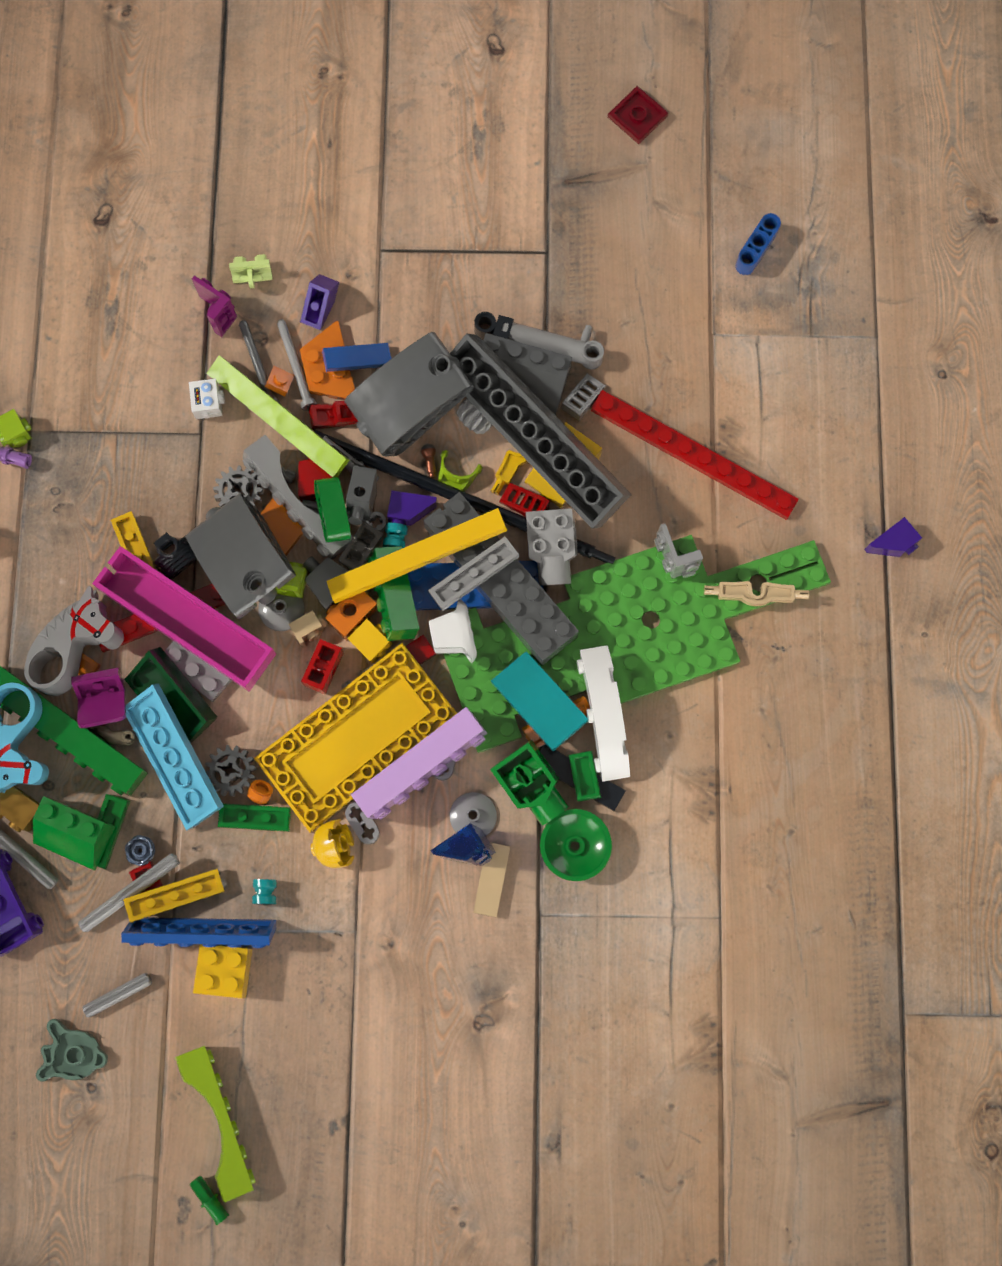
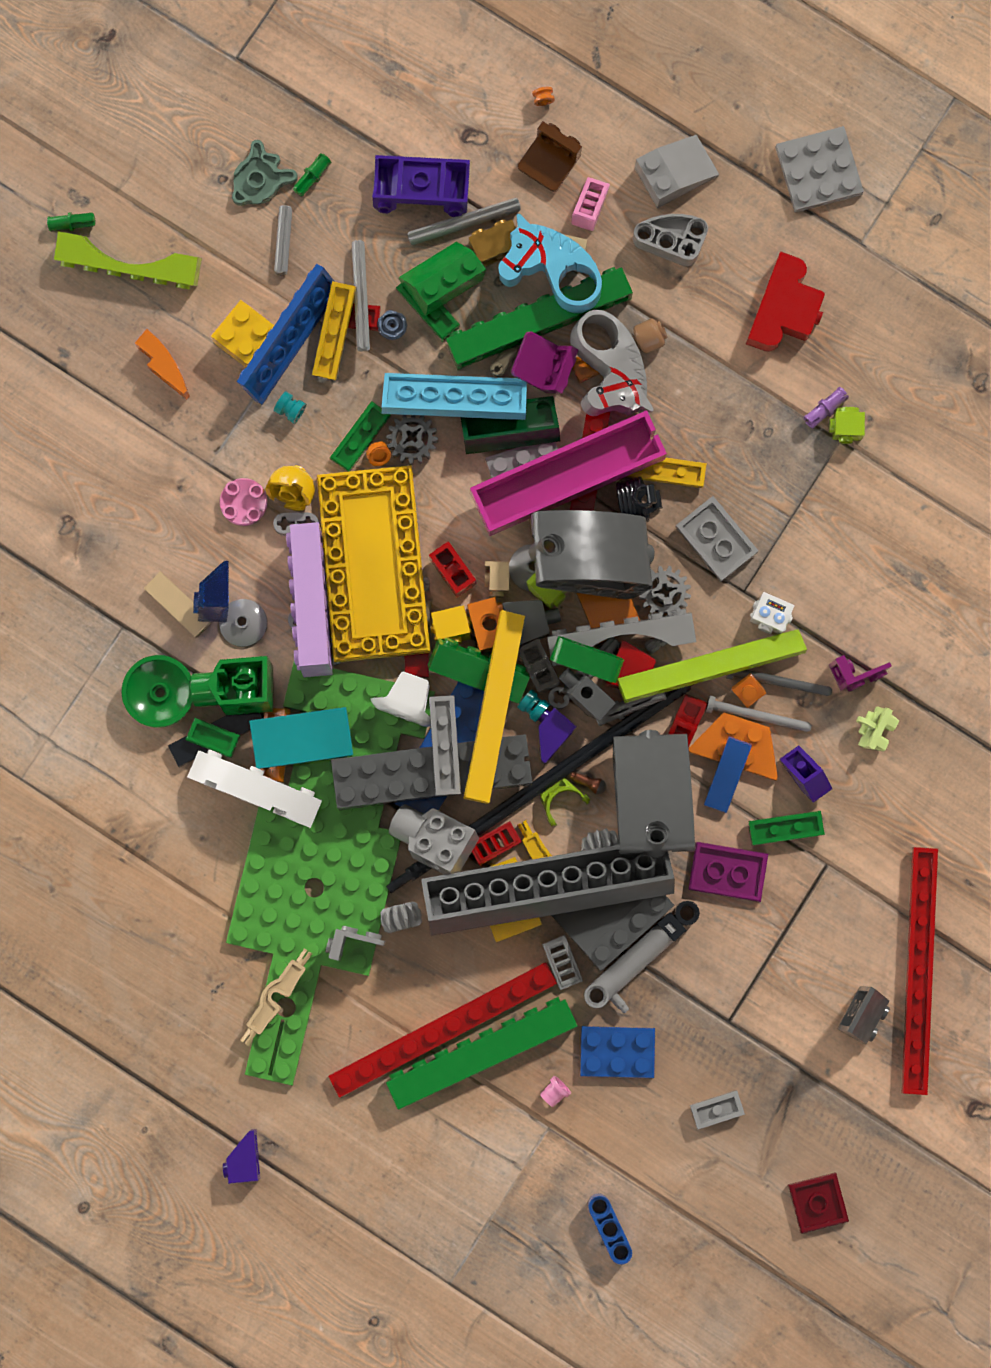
camera: 125 degrees right, 5 degrees up
(25, 629) = (649, 335): none -> medium nougat head
(41, 1007) = (312, 174): none -> green axle
(169, 476) = (716, 538): none -> light grey plate
(290, 1028) = (162, 362): none -> orange slope
(370, 880) = (243, 501): none -> bright pink dish
(371, 292) = (786, 828): none -> green plate
(418, 138) = (919, 971): none -> red plate
(433, 312) = (728, 871): none -> magenta tile
(479, 156) = (864, 1014): none -> dark grey slope
(618, 220) = (717, 1109): none -> light grey plate
(623, 317) = (617, 1052): none -> blue plate
(630, 534) = (401, 917): none -> light grey gear
(684, 342) = (555, 1091): none -> bright pink piece
(693, 412) = (480, 1054): none -> green brick

